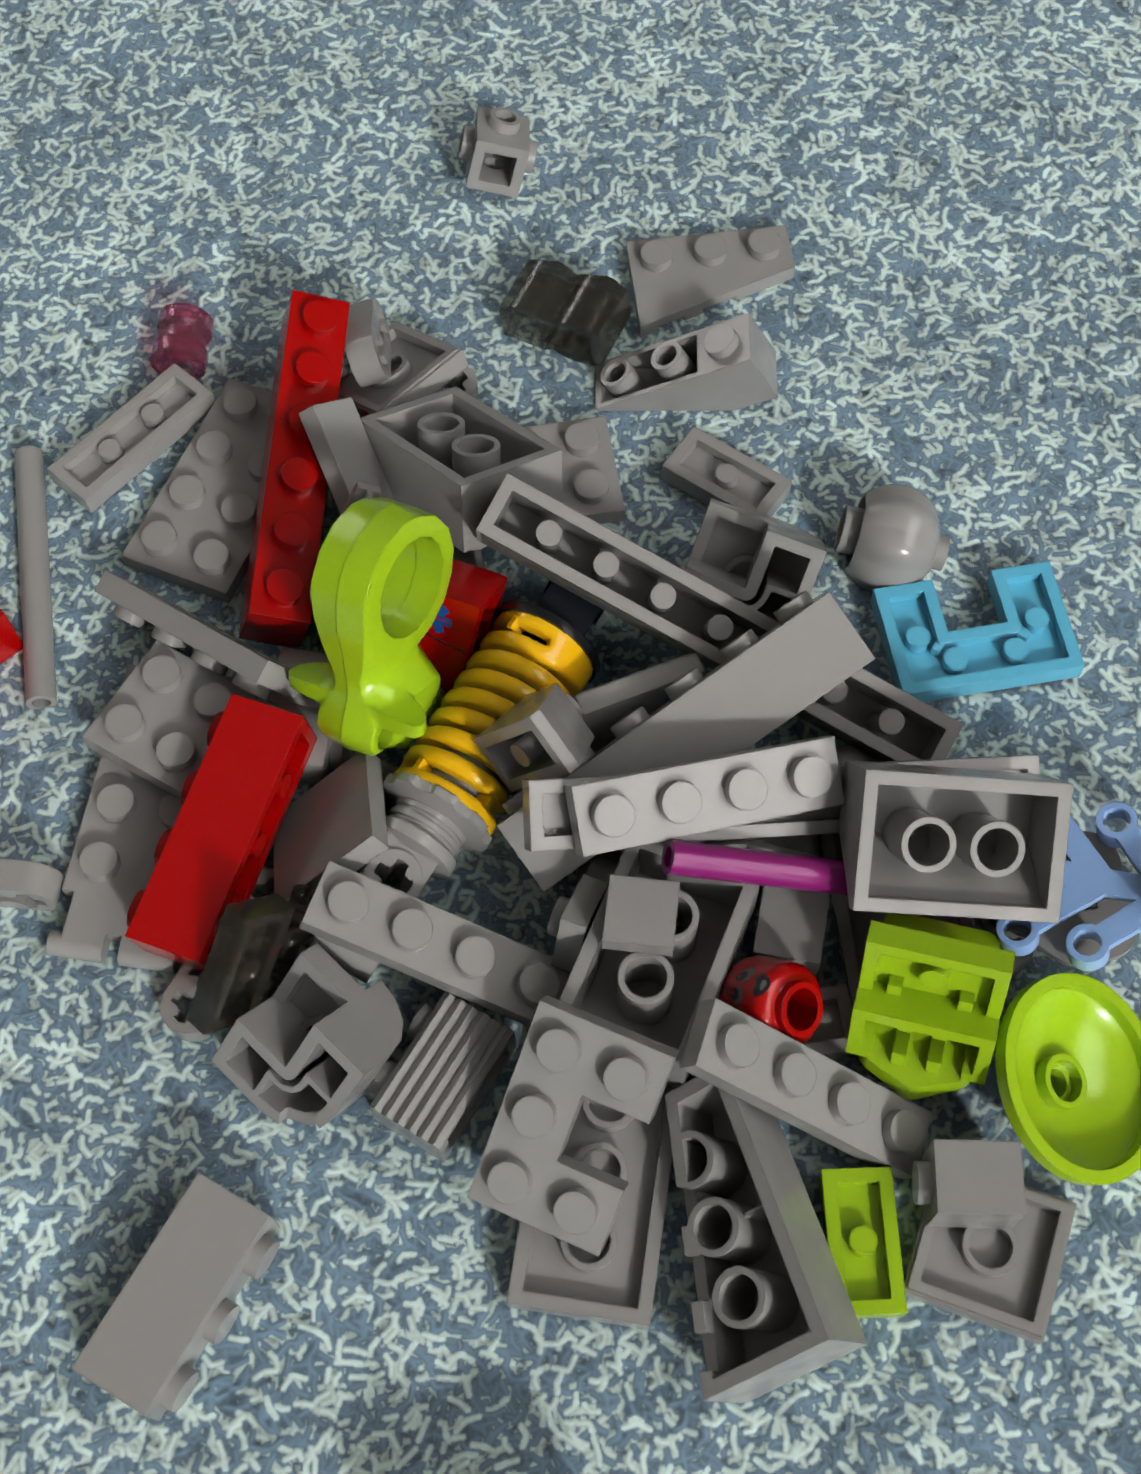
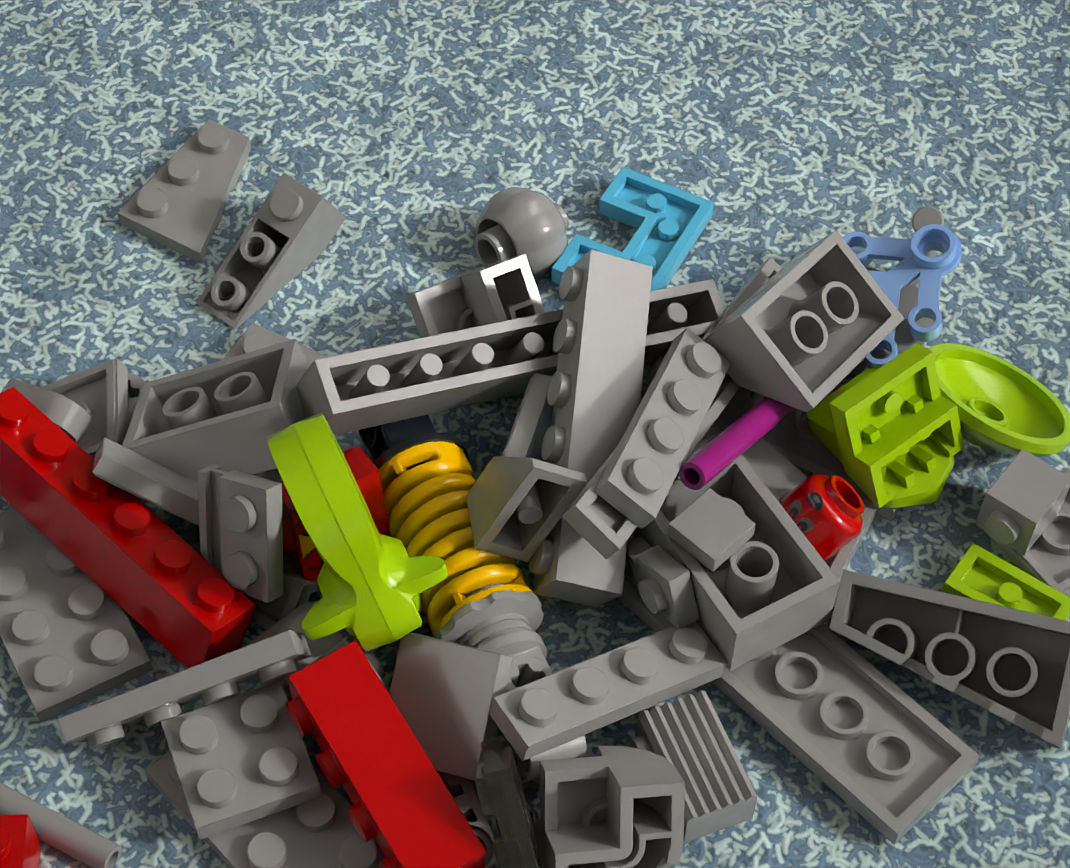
camera: 55 degrees left, 10 degrees down
(524, 1160) = (811, 738): light grey plate -> none
(565, 311) = (140, 284): clear smoke brick -> none
(717, 471) = (374, 290): light grey plate -> none
(804, 1088) = (892, 540): light grey plate -> none

